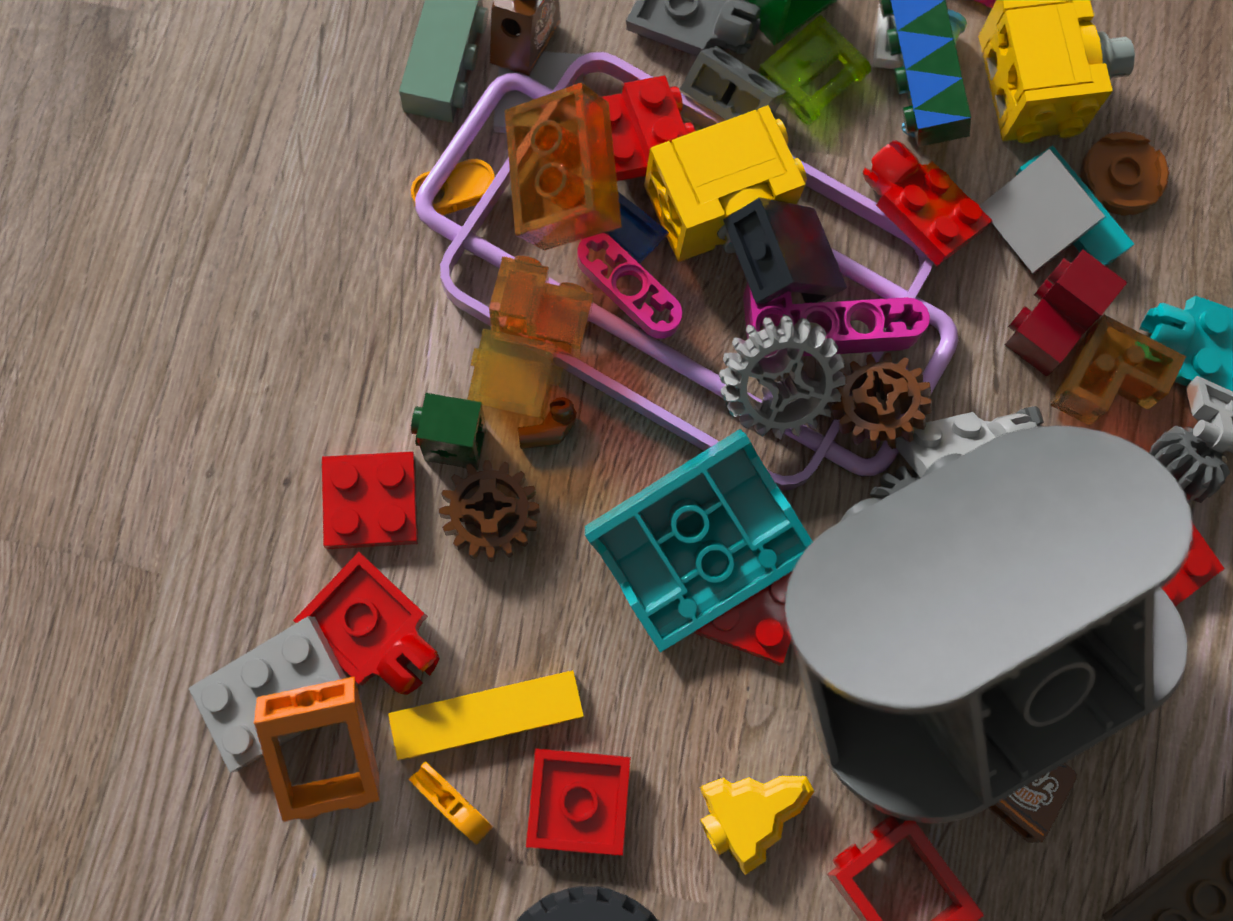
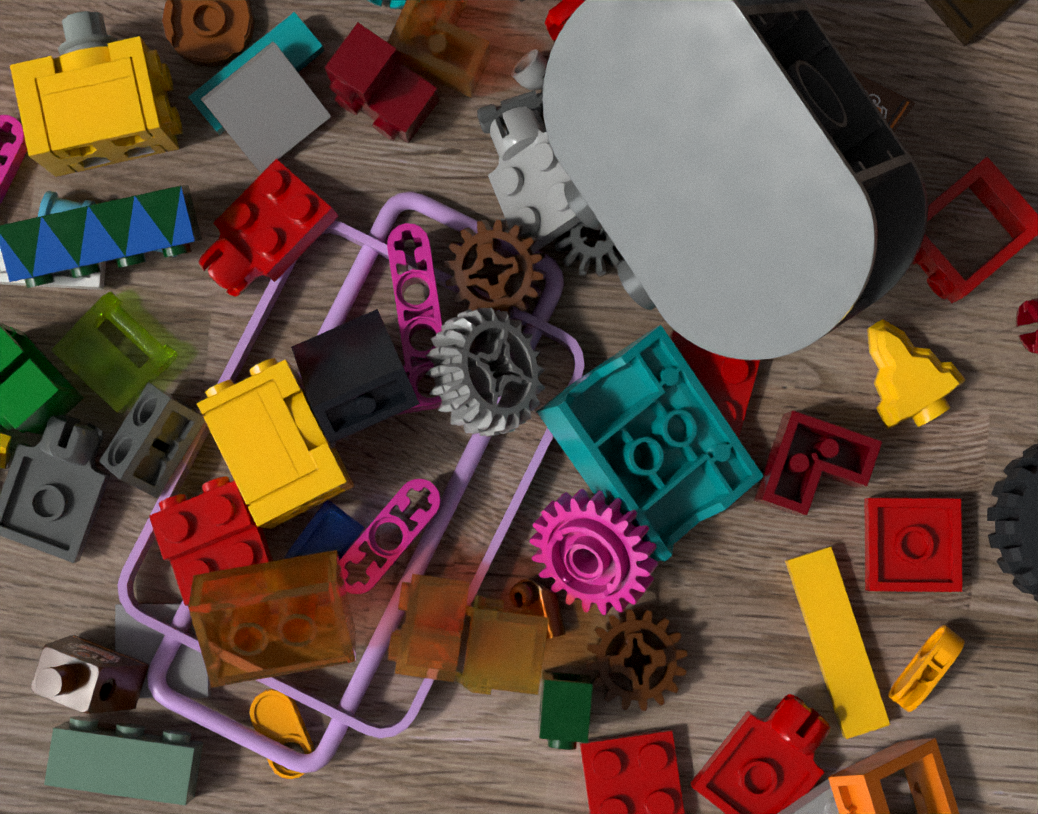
camera: 90 degrees left, 10 degrees up
(599, 472) = (593, 551): none -> dark pink gear
(682, 691) = (808, 450): none -> dark red brick

